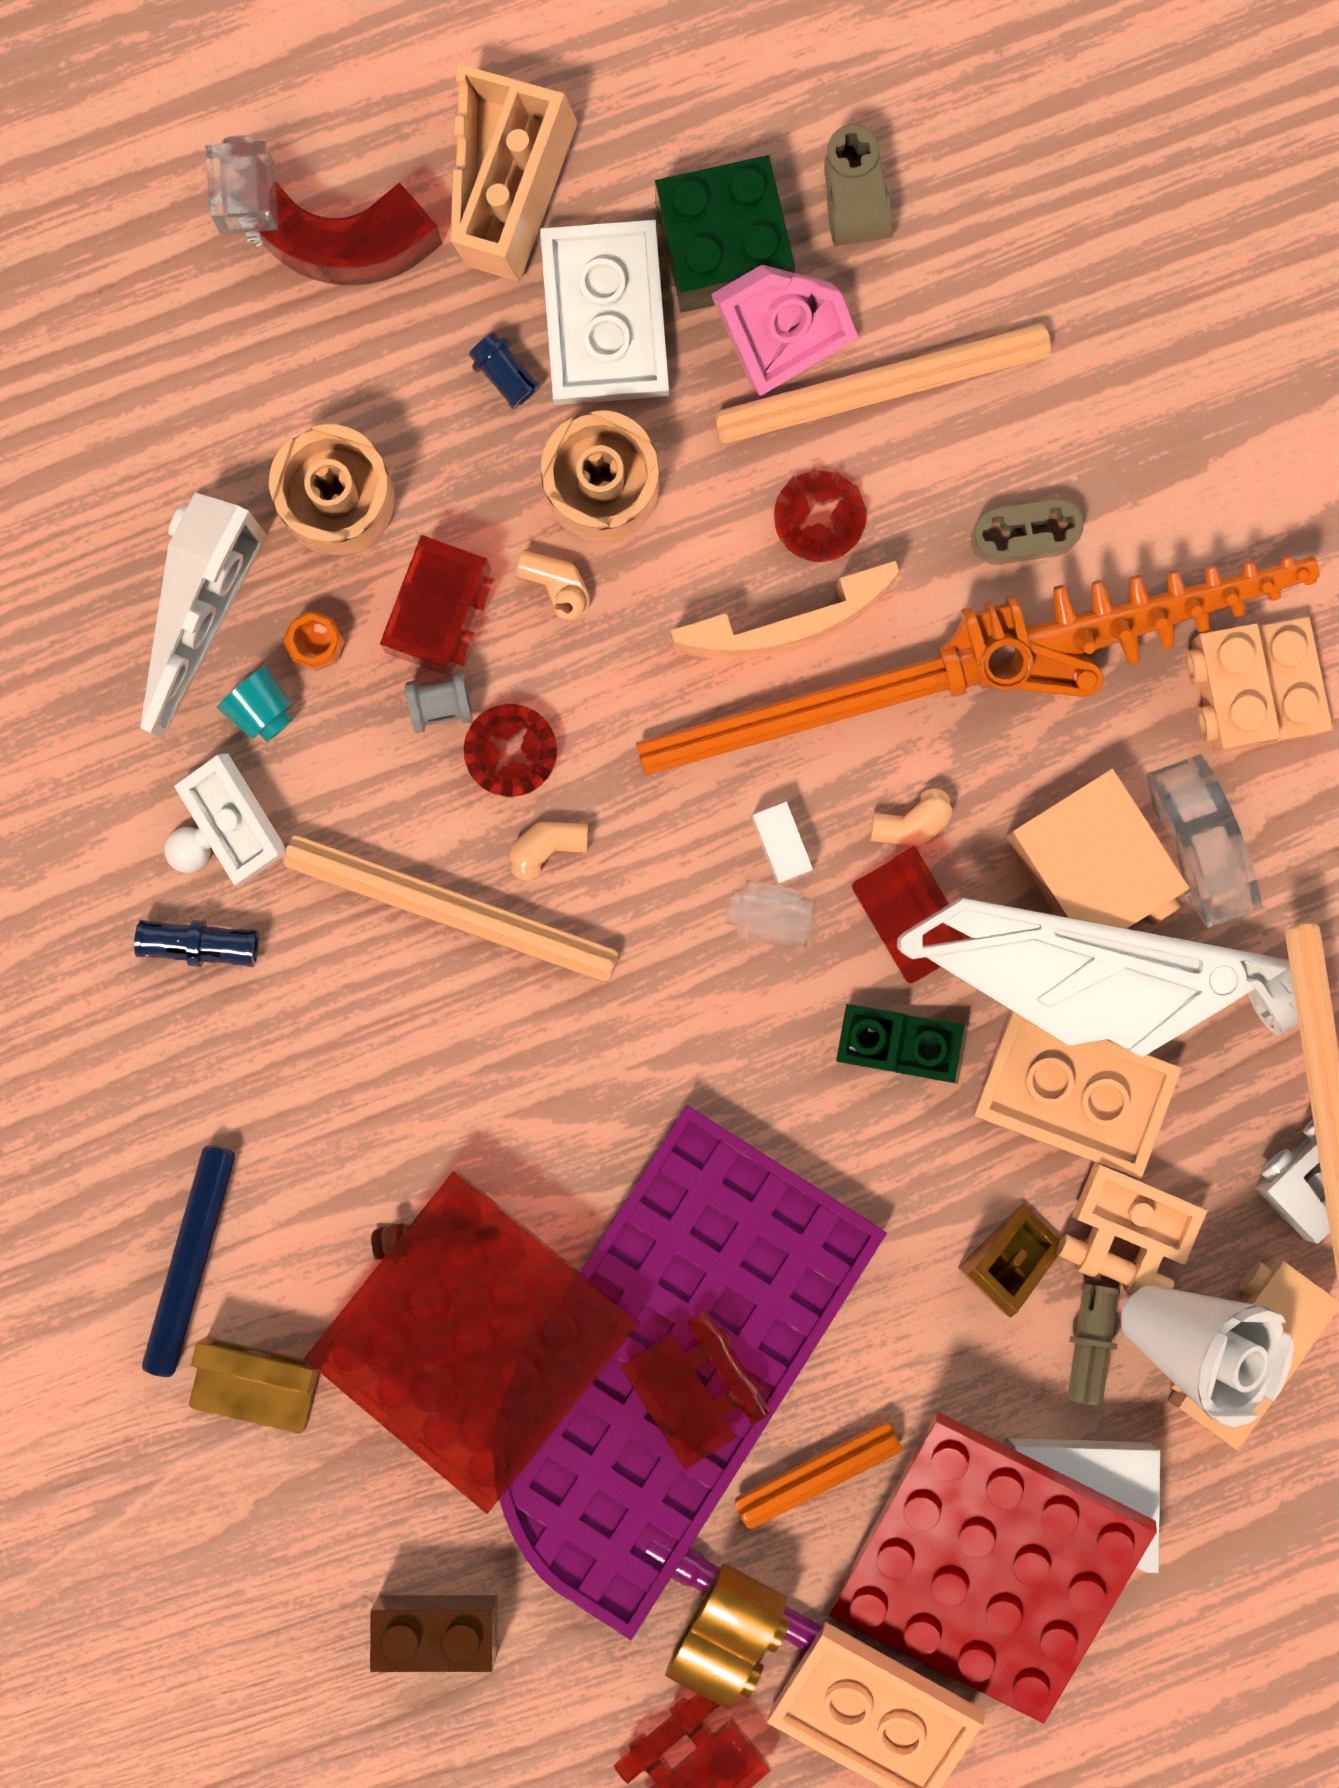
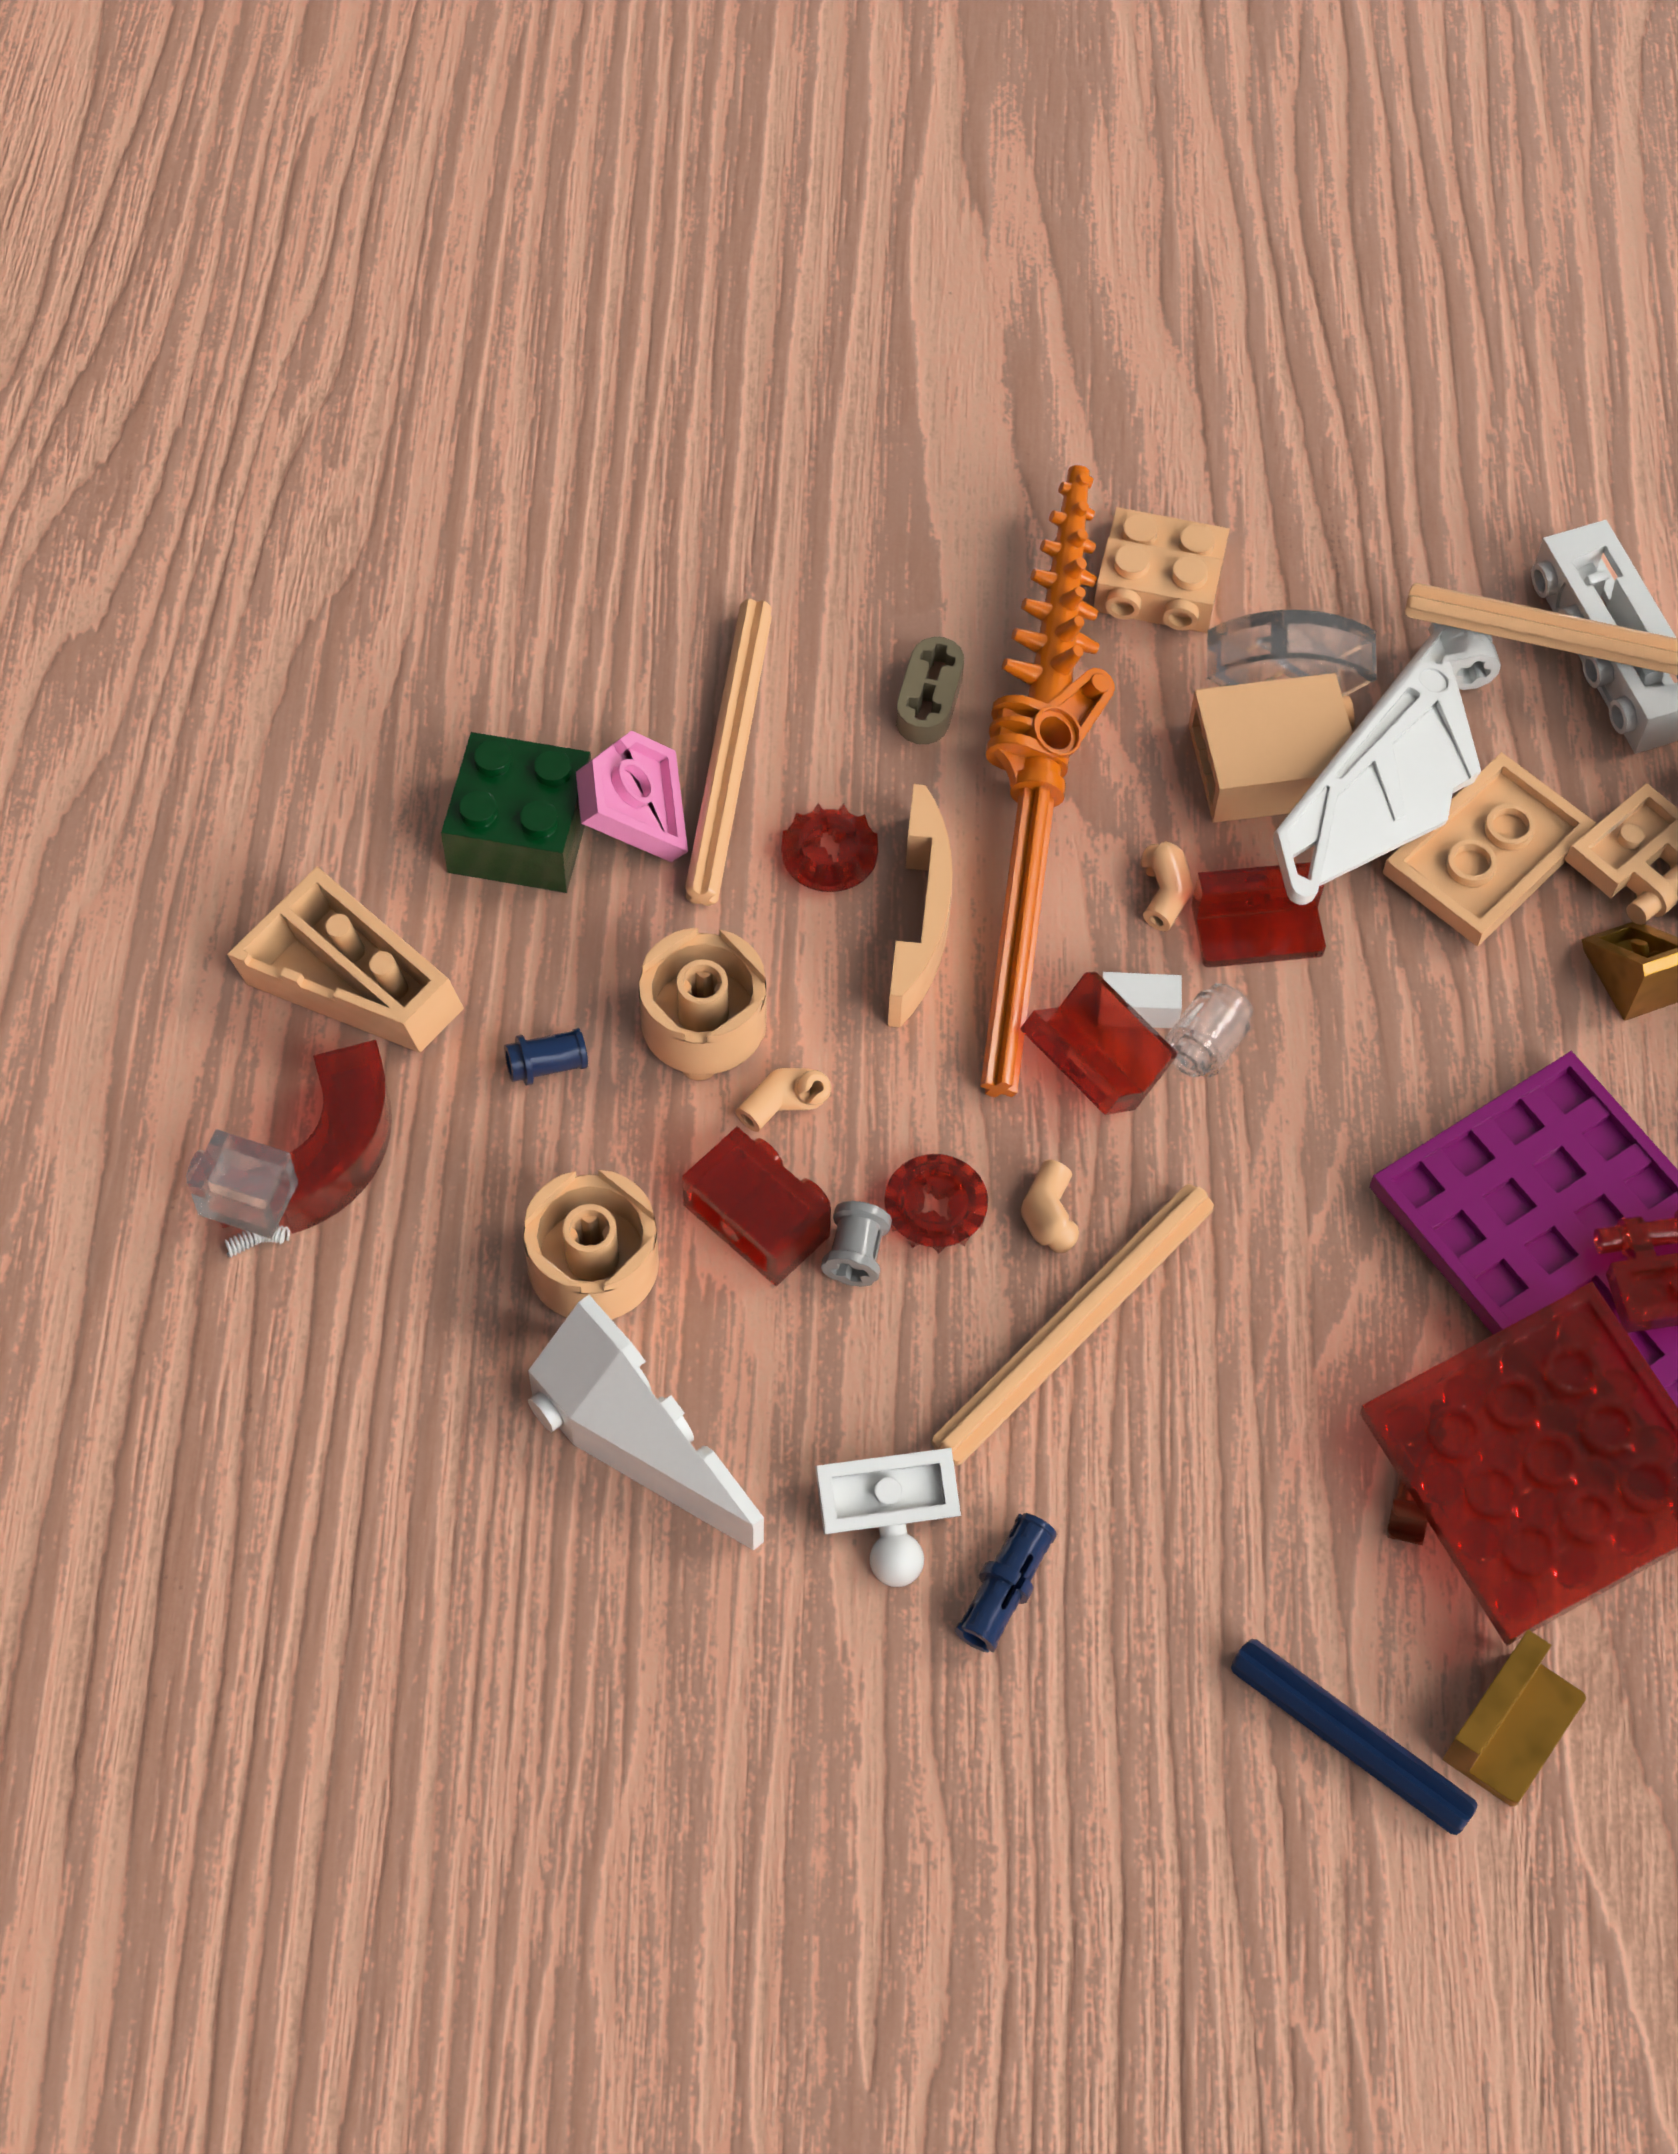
camera: 70 degrees left, 25 degrees down
(258, 706) = (777, 1416): teal hat -> none
(313, 641) = (734, 1339): orange tile -> none
(604, 312) = (537, 946): white plate -> none
(710, 826) = (1101, 1045): none -> clear red panel
(856, 195) = (538, 697): dark tan piece -> none
(901, 1043) = (1384, 975): dark green slope -> none

